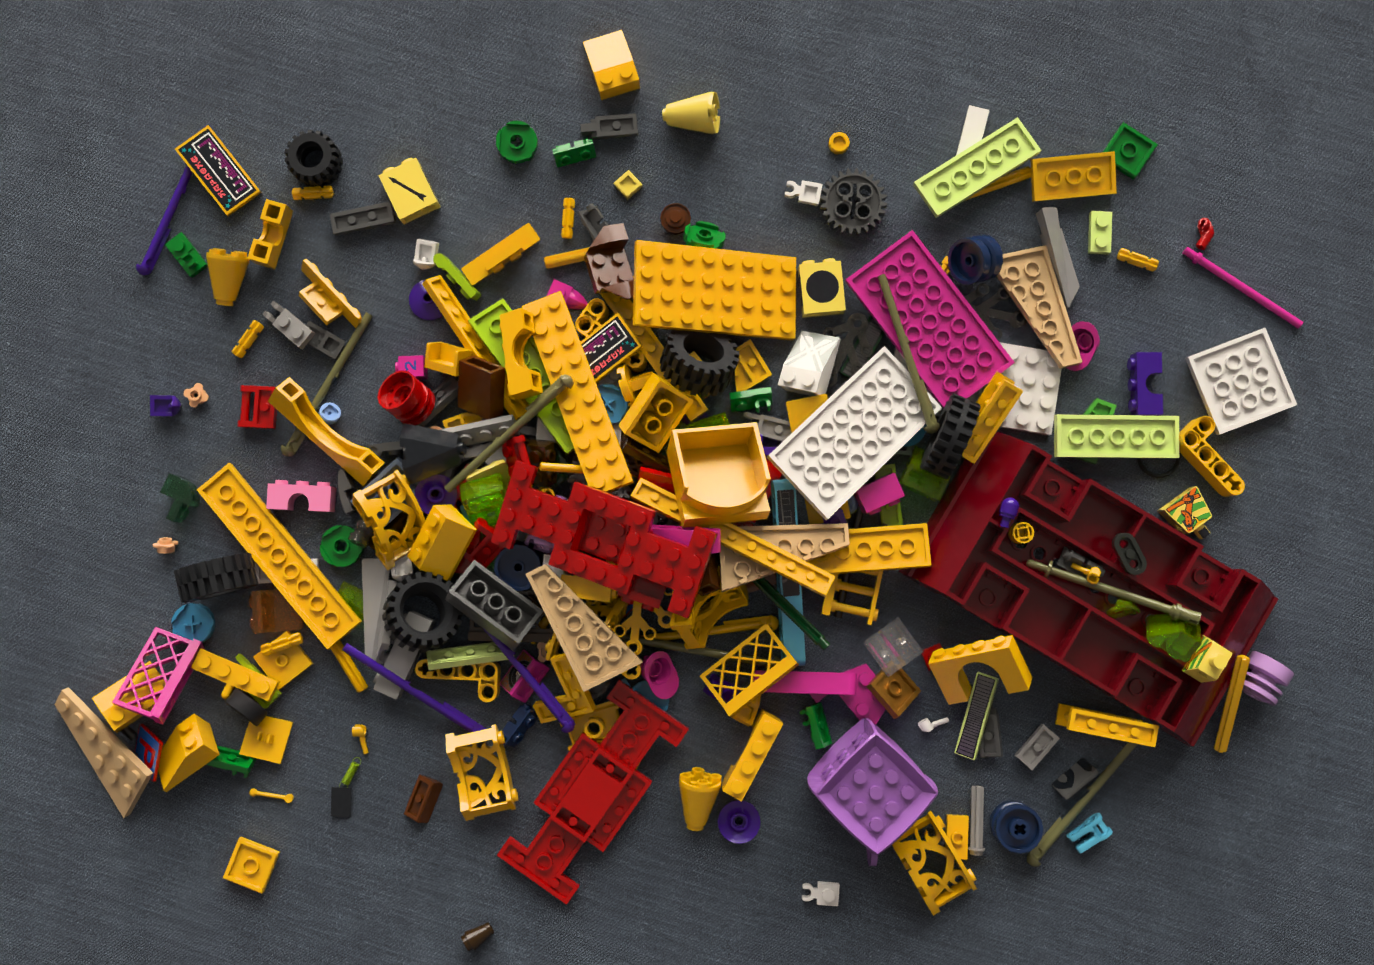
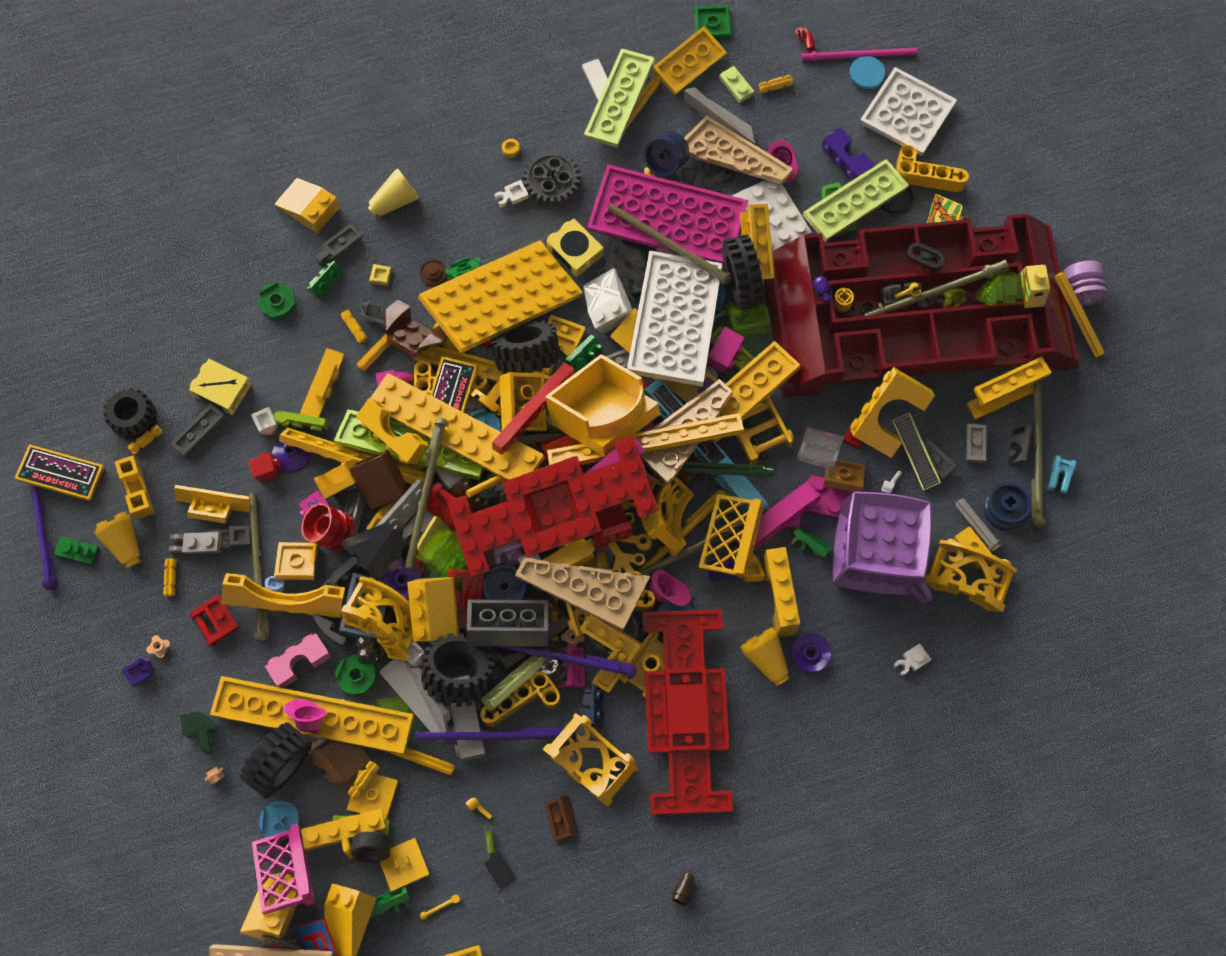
camera: 40 degrees left, 15 degrees down
(269, 554) = (306, 715): none -> dark pink piece
(360, 405) = (296, 561): none -> yellow tile
(395, 297) = (265, 467): none -> red brick
(506, 672) = (553, 669): none -> clear smoke bush
(657, 428) = (530, 411): none -> piece
(1234, 312) = (867, 72): none -> dark azure tile

